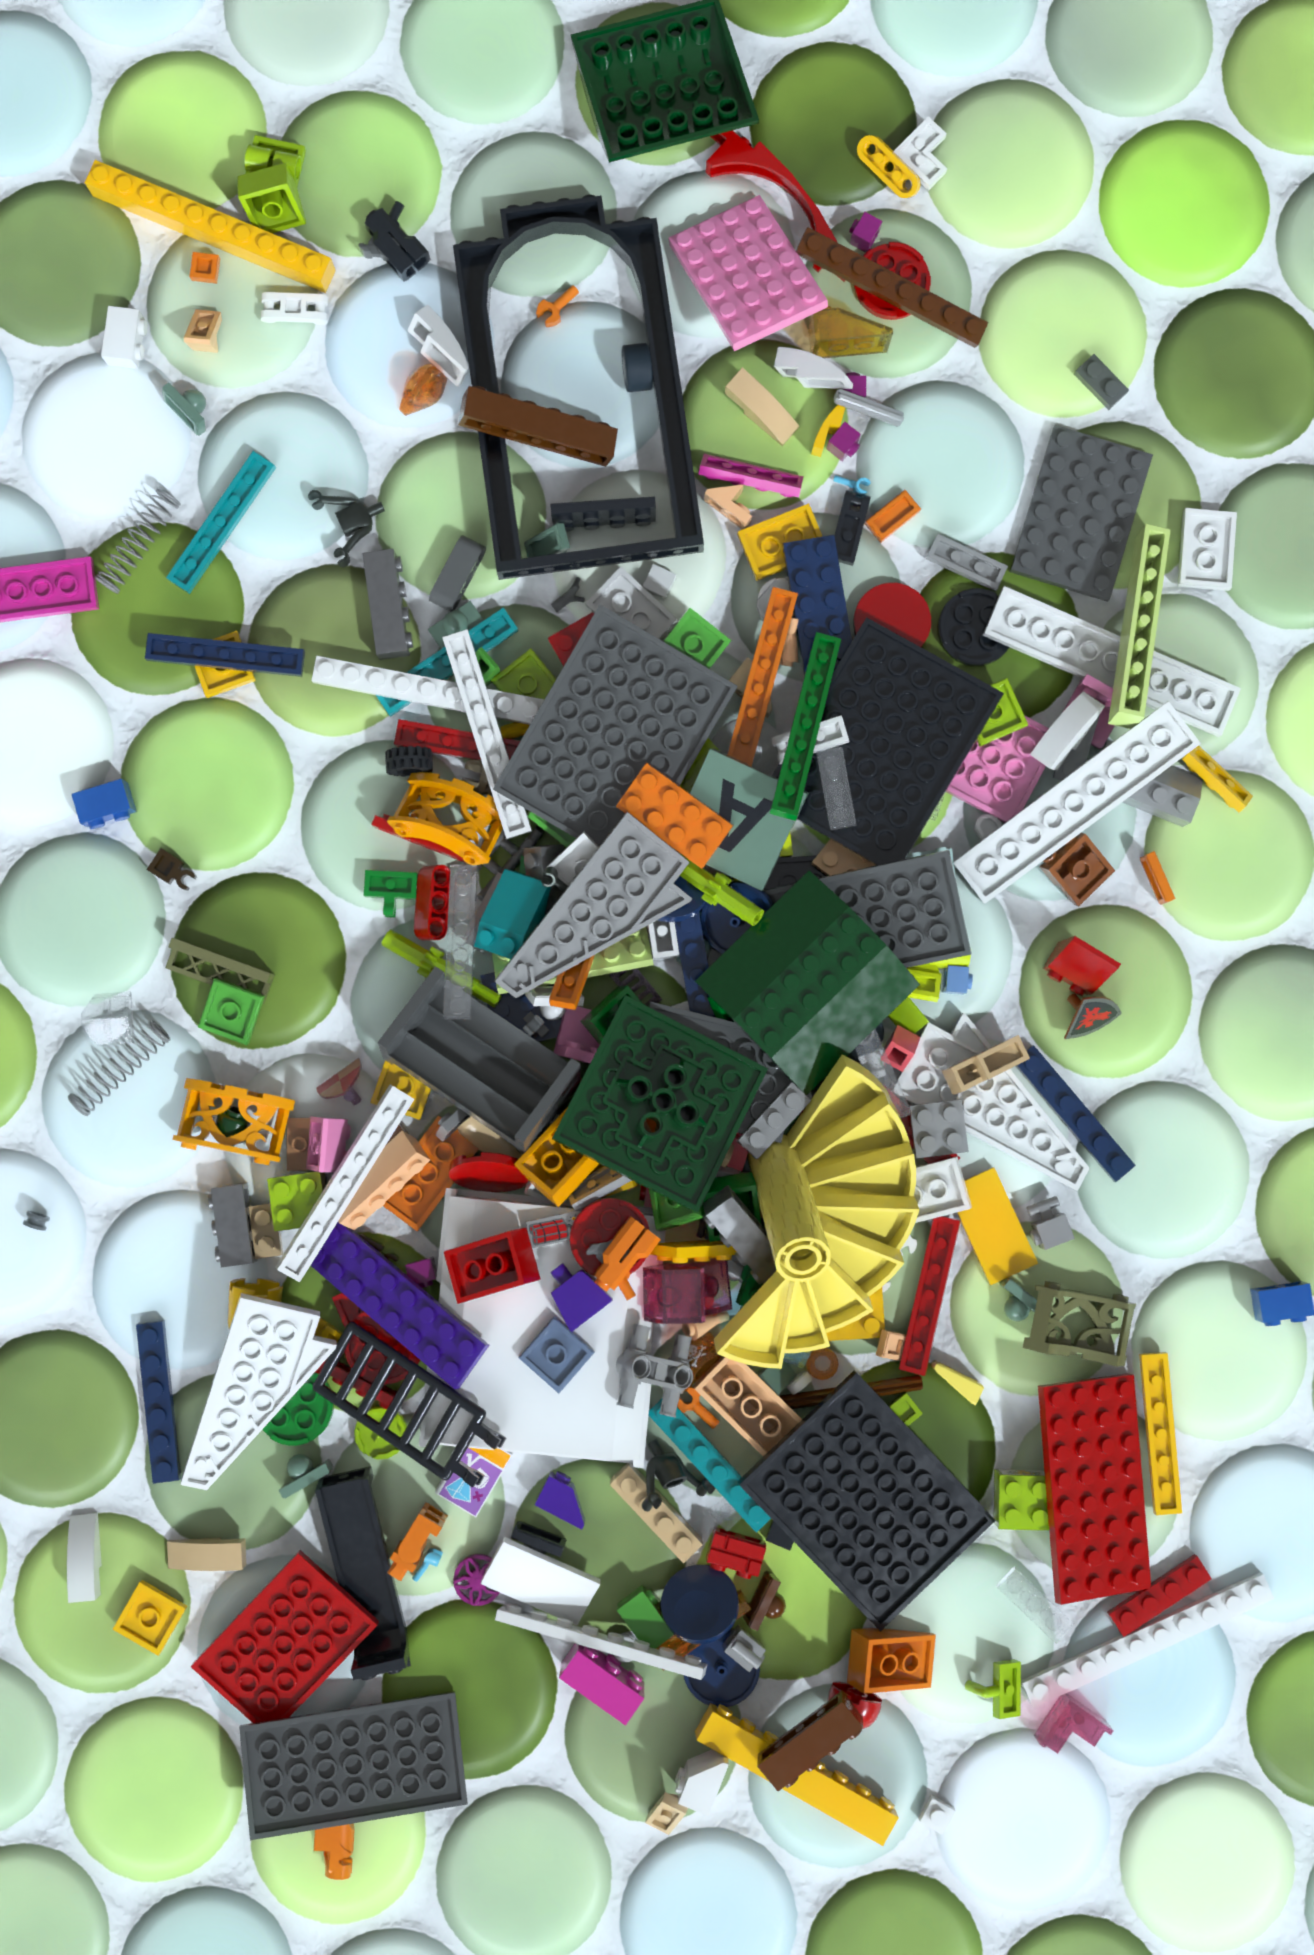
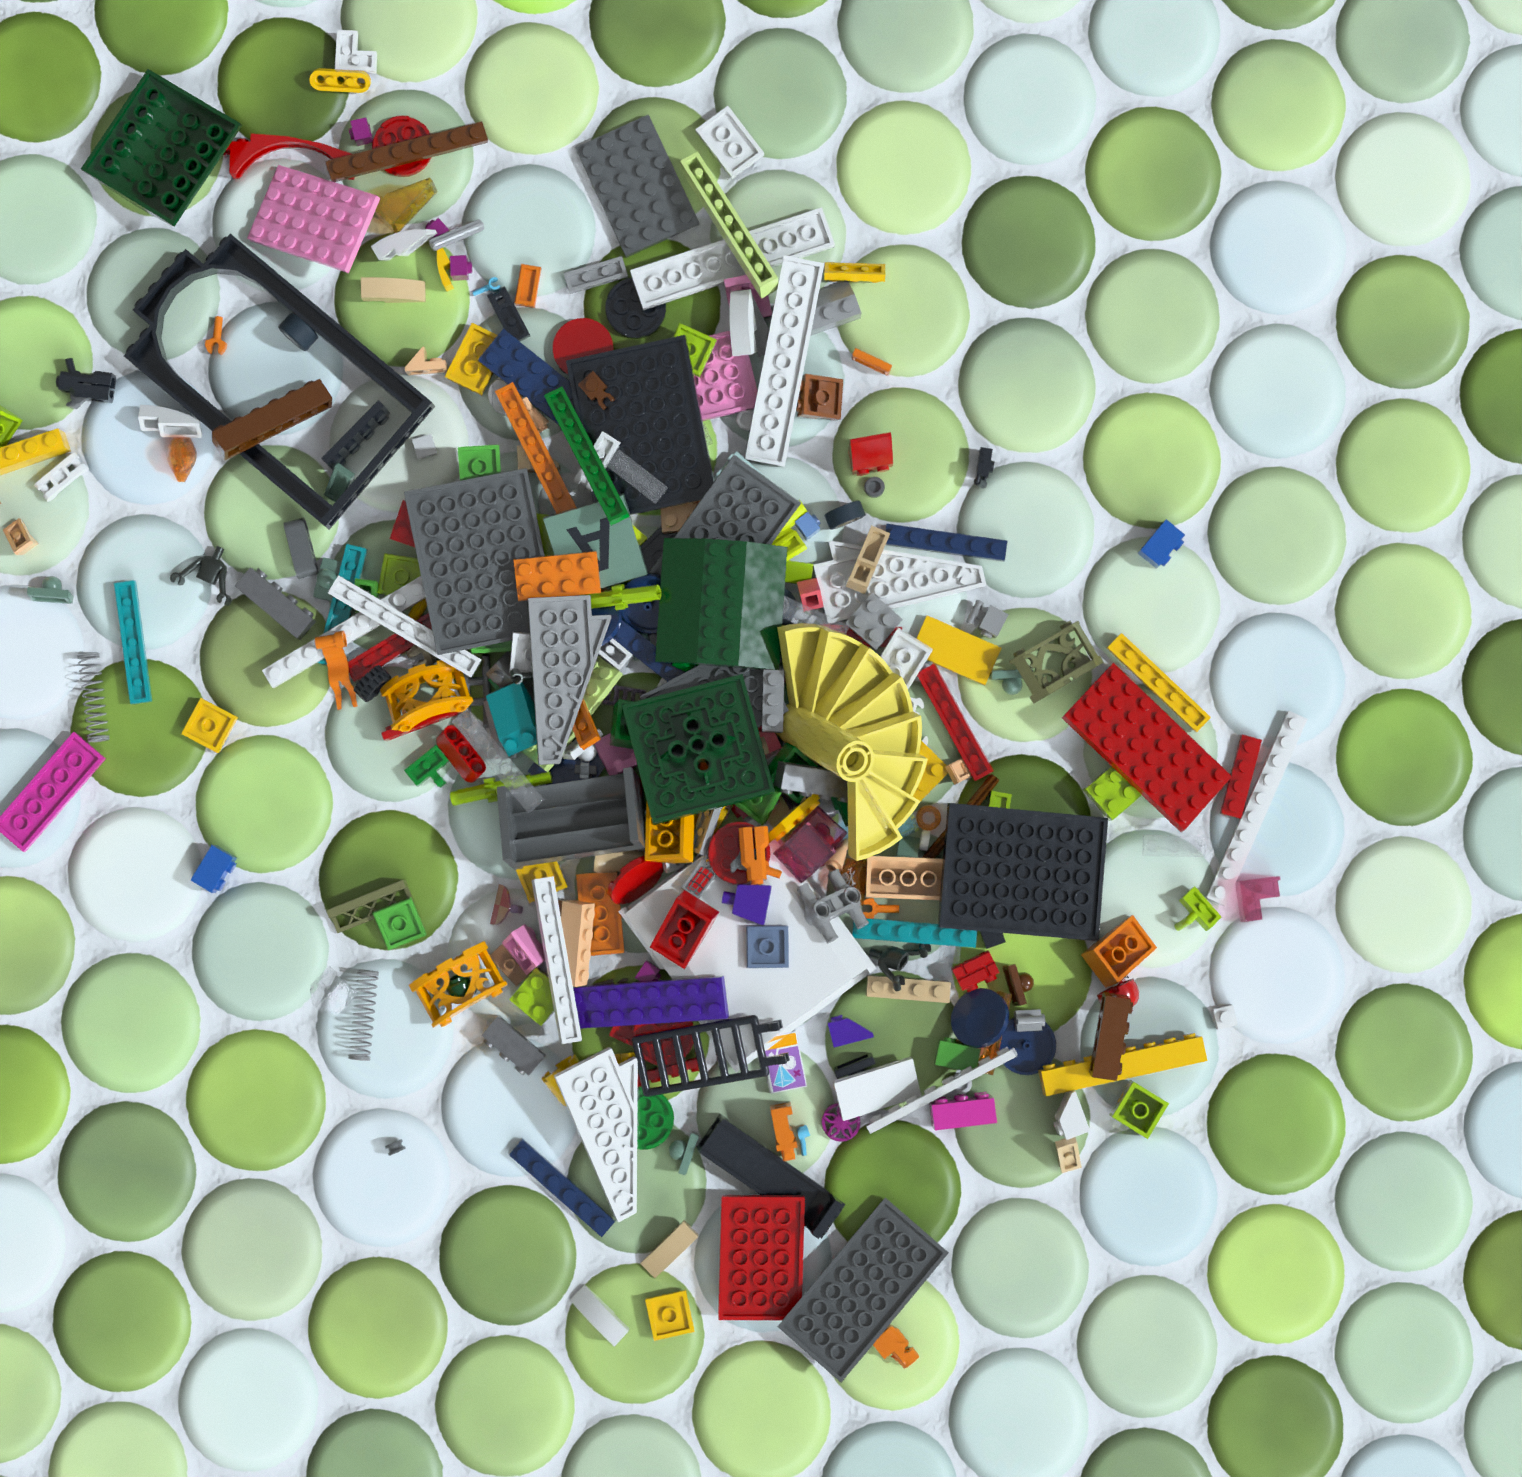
camera: 35 degrees left, 0 degrees up
(169, 868) = (286, 872): dark brown plate -> none
(225, 654) = (207, 717): dark blue plate -> none
(265, 1240) = (535, 1034): tan plate -> none
(373, 1444) = (710, 1096): lime tile -> none
(392, 713) = (337, 664): none -> orange flag
(450, 1123) = (586, 872): light grey plate -> none
(568, 597) = (379, 503): dark grey bar -> none
(632, 602) = (421, 473): white plate -> none
(751, 475) = (417, 339): dark pink plate -> none
(774, 1831) = (1138, 1109): none -> lime brick
(871, 667) = (594, 388): none -> reddish brown plate
(965, 1385) = (1021, 756): light yellow slope -> none
(1001, 1002) = (844, 515): none -> black wheel
(1052, 999) = (874, 487): none -> dark grey tile
(1090, 1015) = (904, 476): shield -> none
(1101, 382) = (580, 97): dark grey plate -> none
(1176, 1074) = (984, 466): none -> black piece

